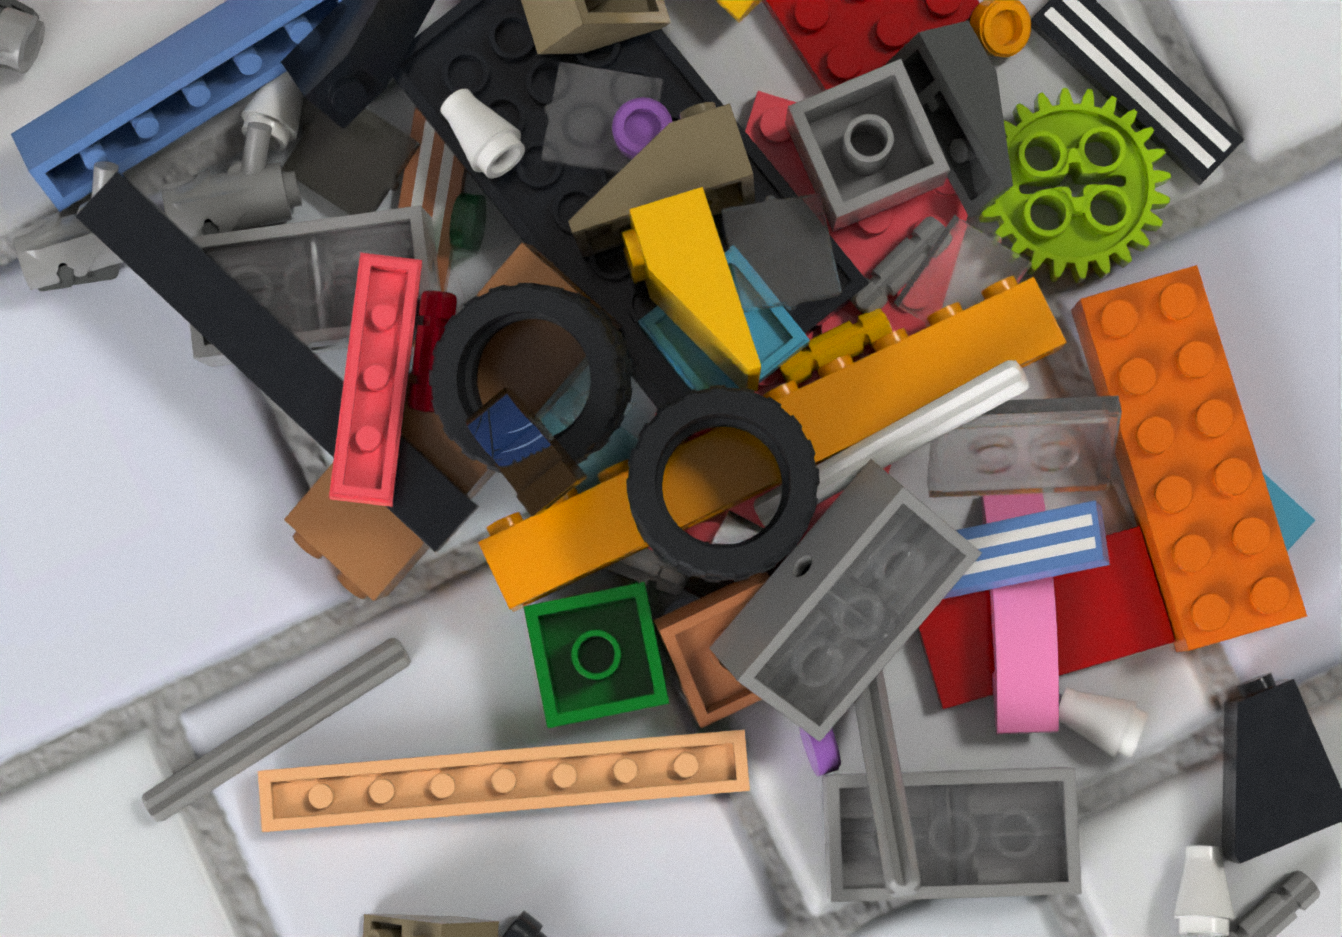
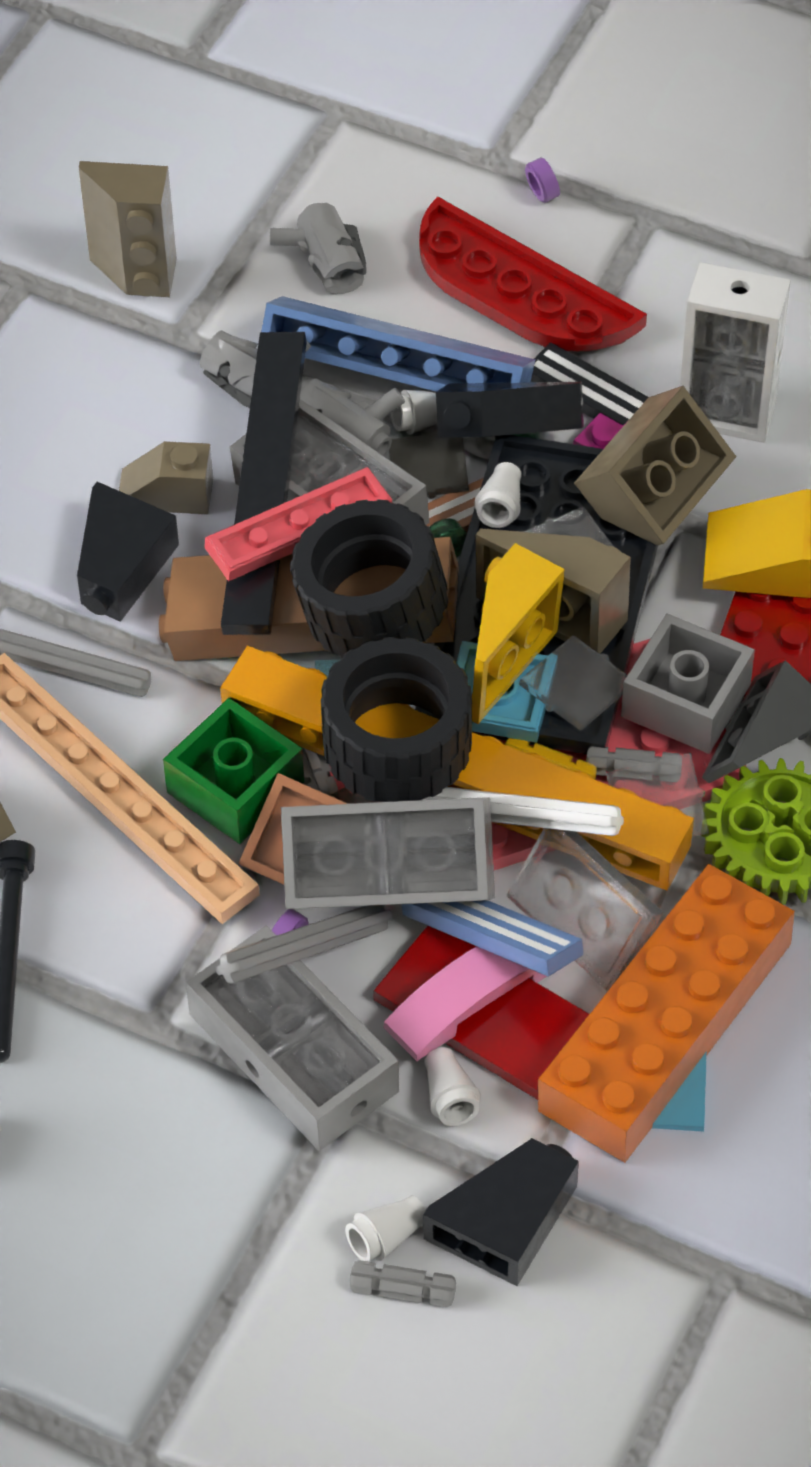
camera: 50 degrees right, 30 degrees down
(158, 439) = (172, 477): none -> dark tan slope
(215, 556) = (122, 550): none -> black slope
(524, 451) = (317, 576): leg -> none

